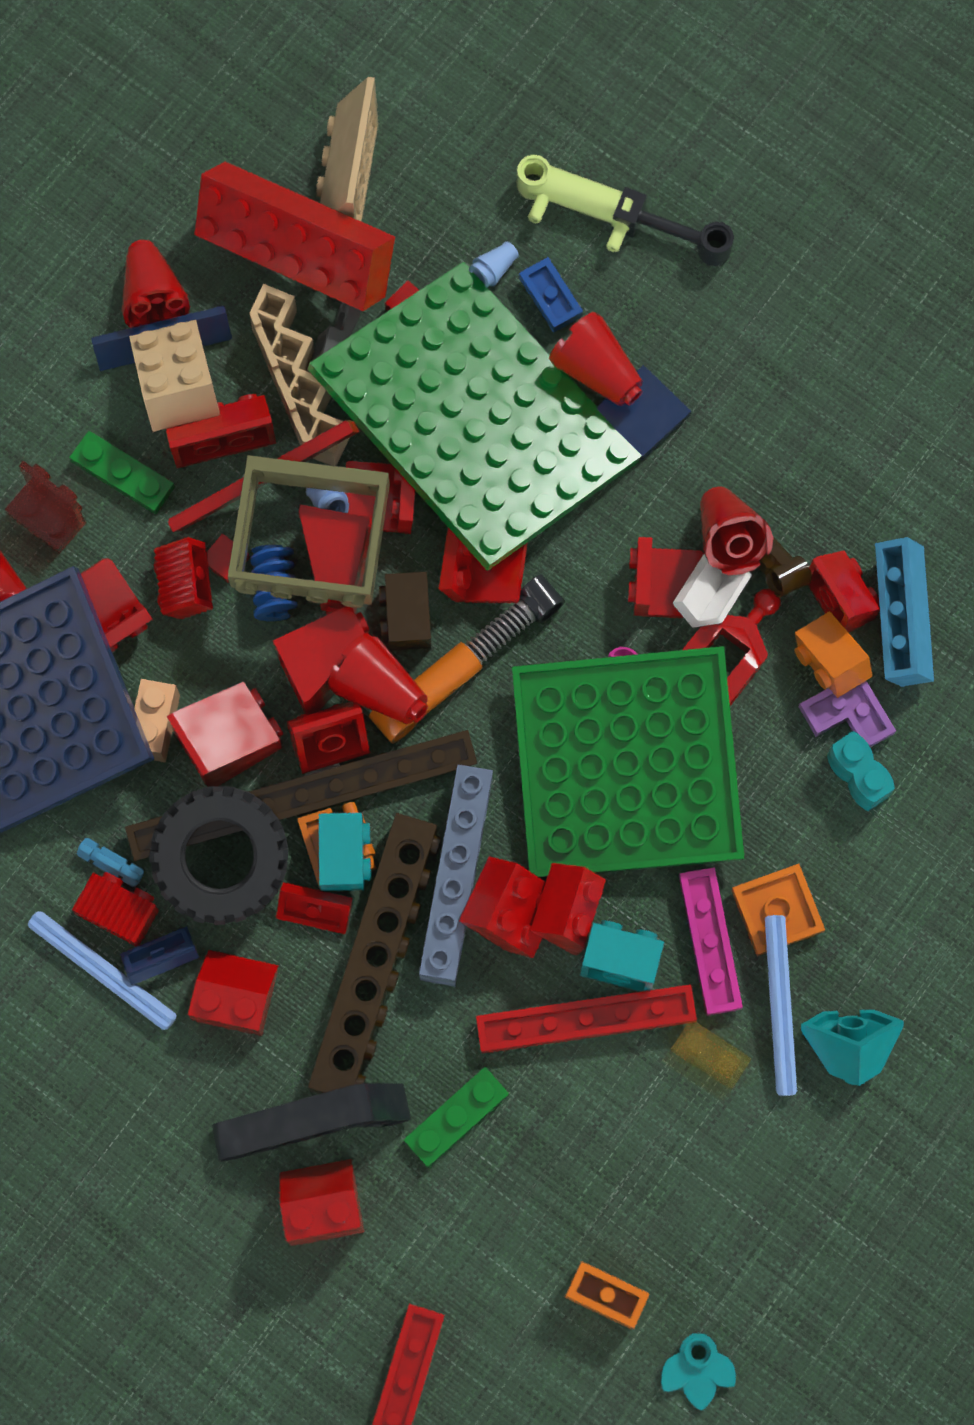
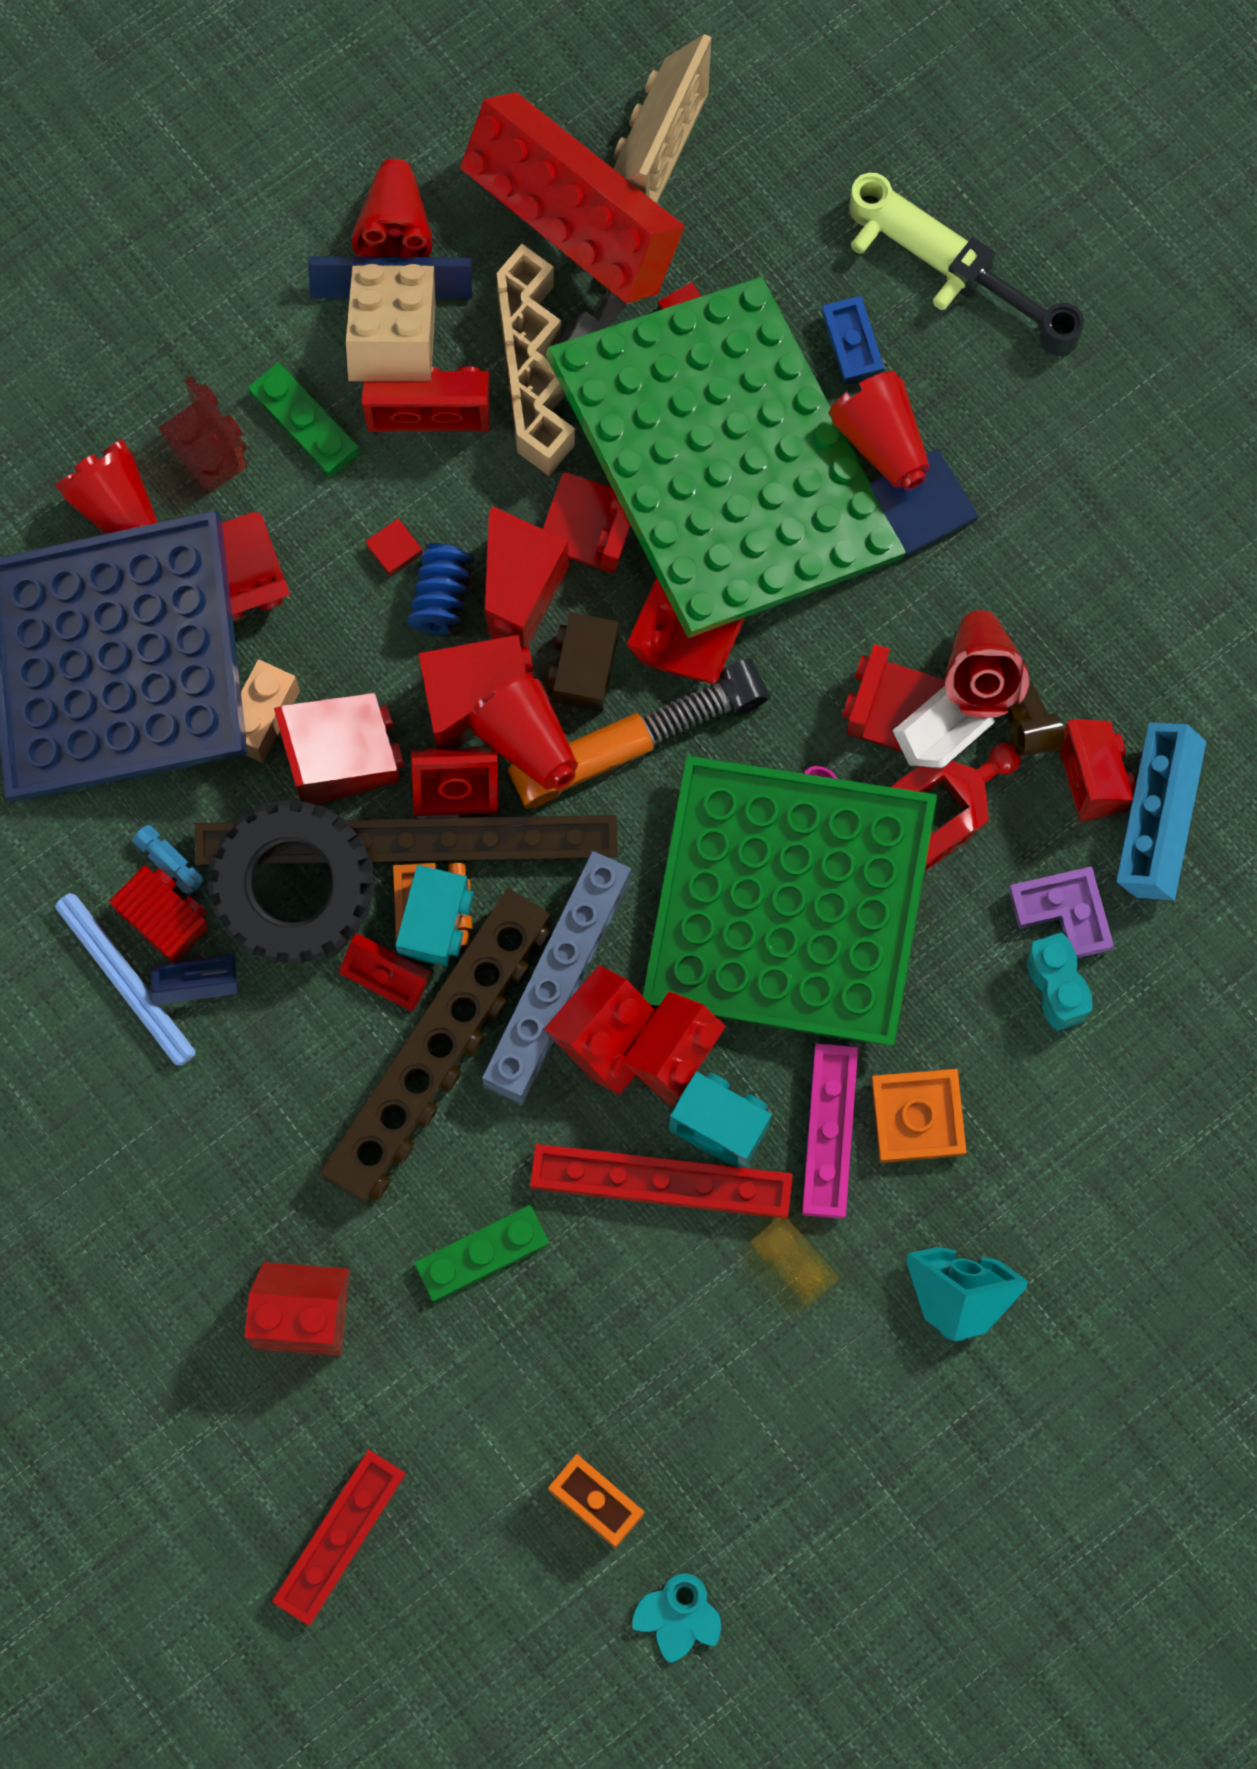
camera: 15 degrees right, 0 degrees up
(183, 578) = (338, 558): red brick -> none
(233, 492) = (461, 463): red tile -> none
(233, 992) = (266, 1044): red slope -> none
(311, 1118) = (316, 1207): black beam -> none
(316, 477) = (516, 478): olive window -> none
(328, 499) = (529, 507): light blue cone -> none
(494, 264) = (796, 288): light blue cone -> none
(780, 1005) = (890, 1225): light blue axle -> none
(833, 655) = (1063, 839): orange brick -> none

